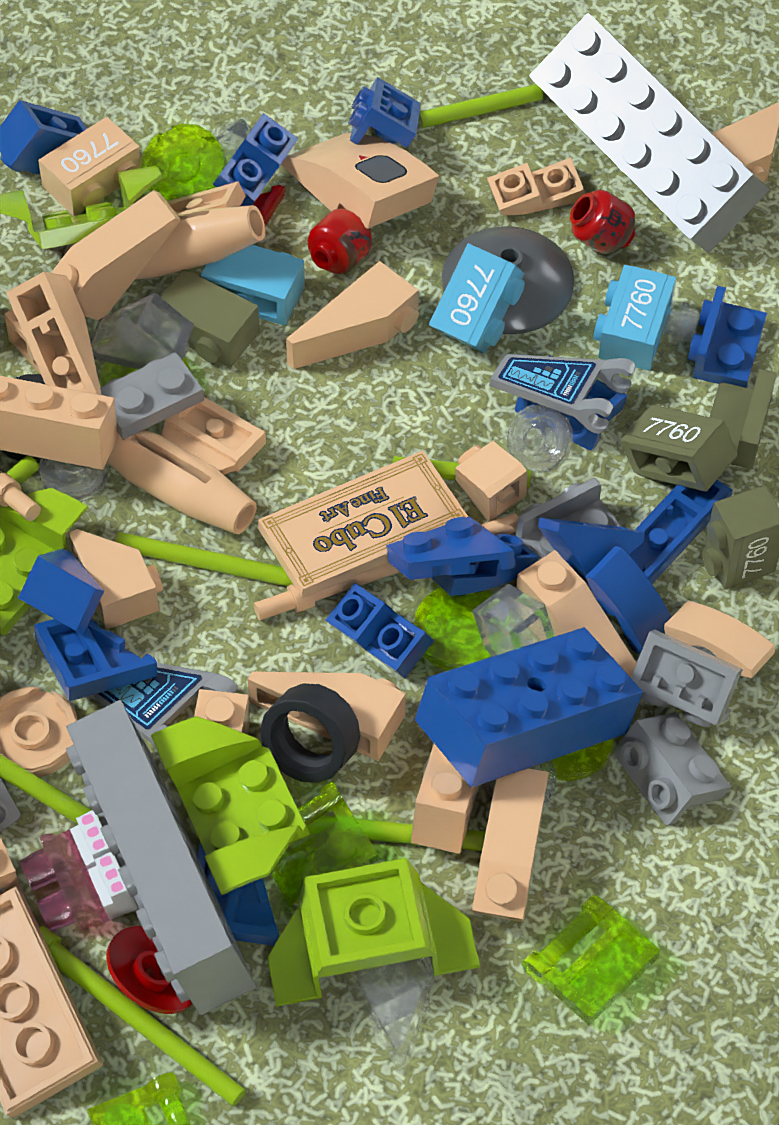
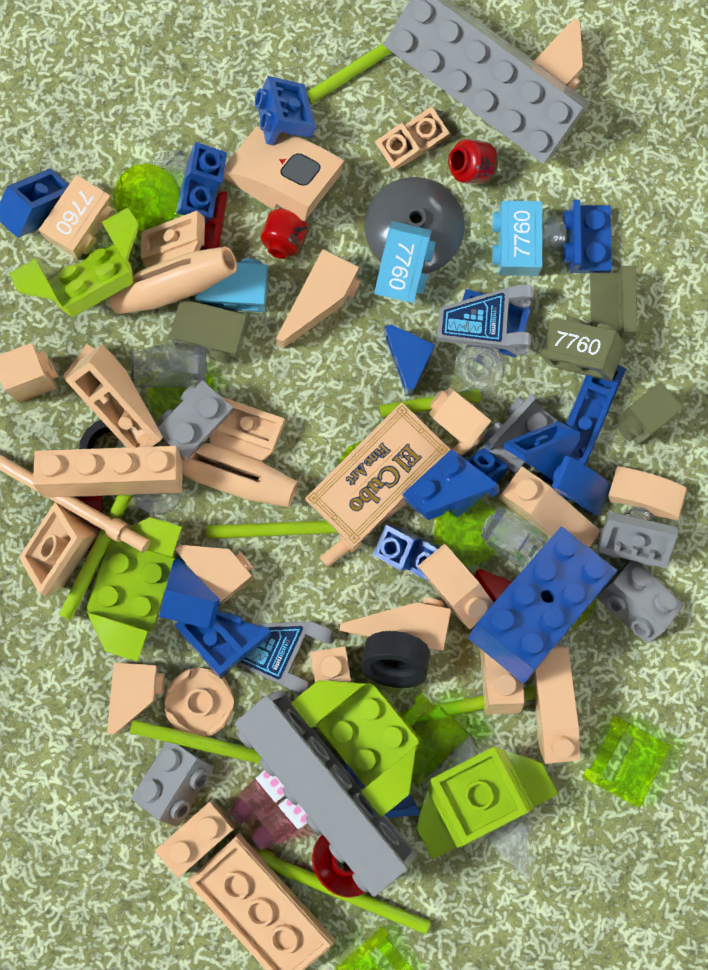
camera: 20 degrees left, 25 degrees up
(116, 253) = (129, 308): light nougat slope -> none
(414, 656) = (456, 586): none -> light nougat slope
(455, 407) = (409, 355): none -> blue slope

